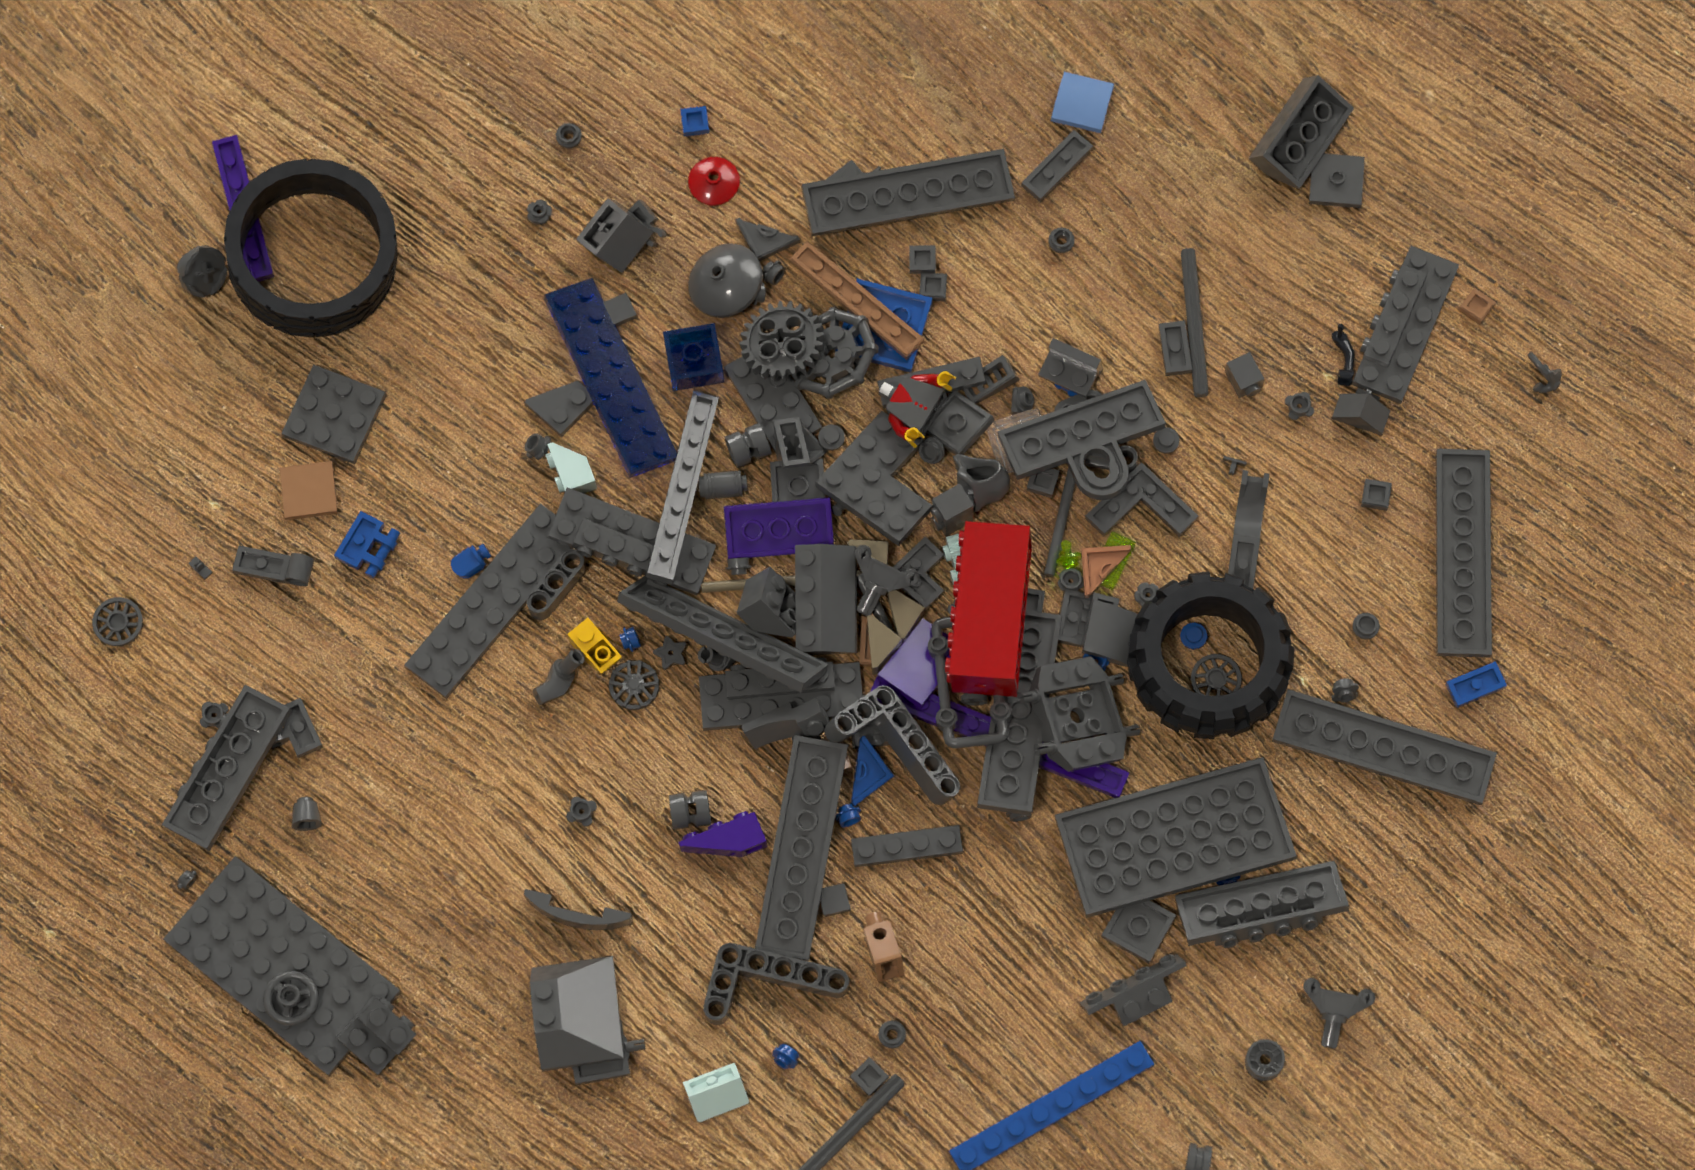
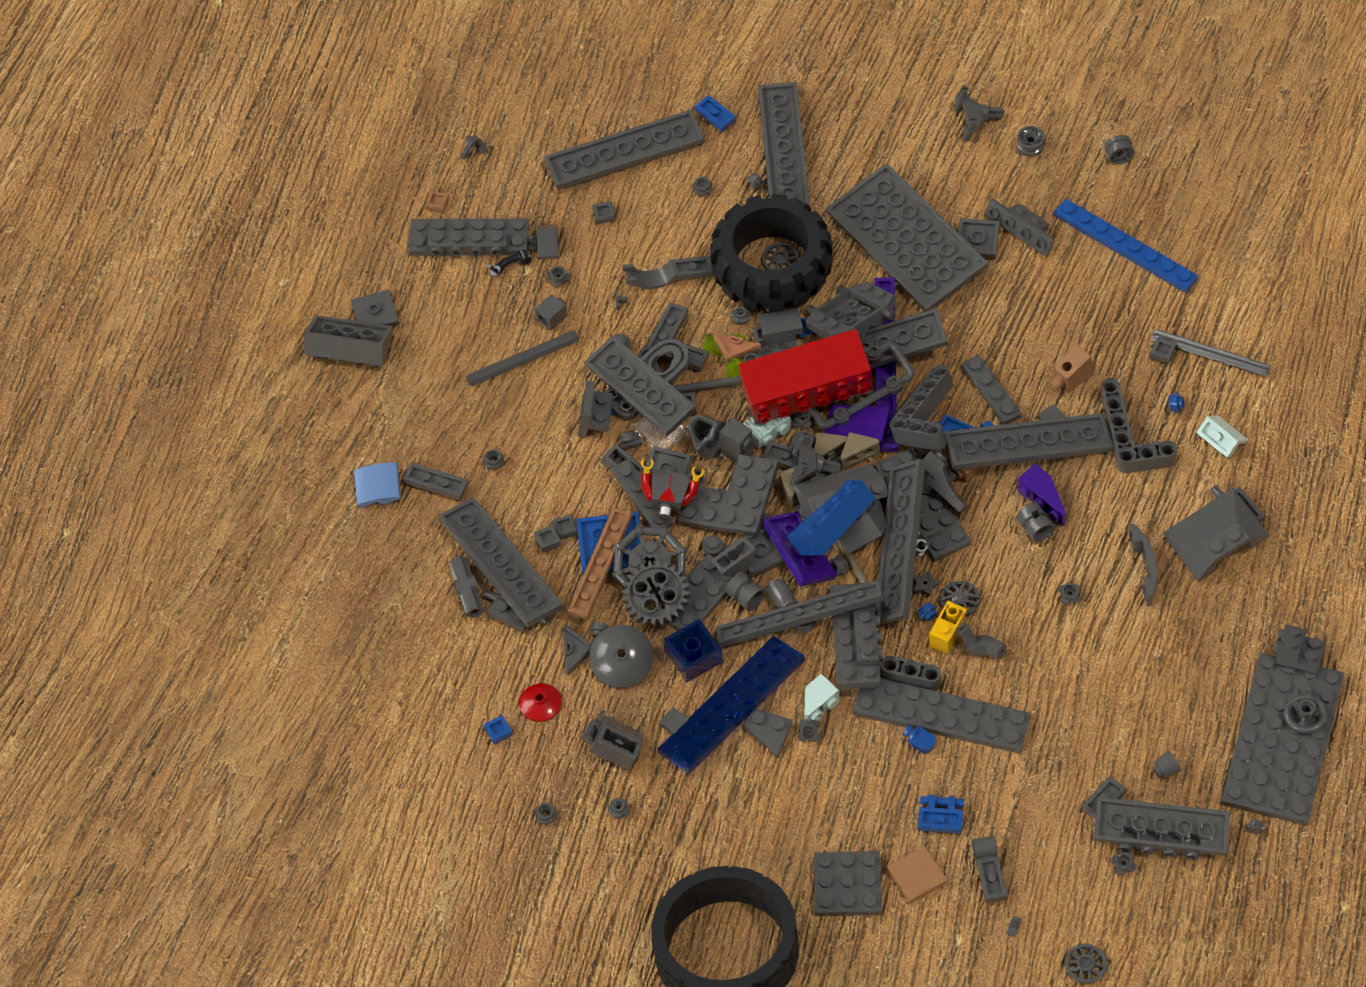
camera: 110 degrees left, 15 degrees down
(776, 559) = (831, 519): none -> blue wedge
(889, 1026) = (1126, 345): dark grey plate -> none
(896, 149) = (466, 587): none -> dark grey piece
(1175, 348) = (548, 360): dark grey plate -> none
(1262, 906) = (928, 173): dark grey plate -> none

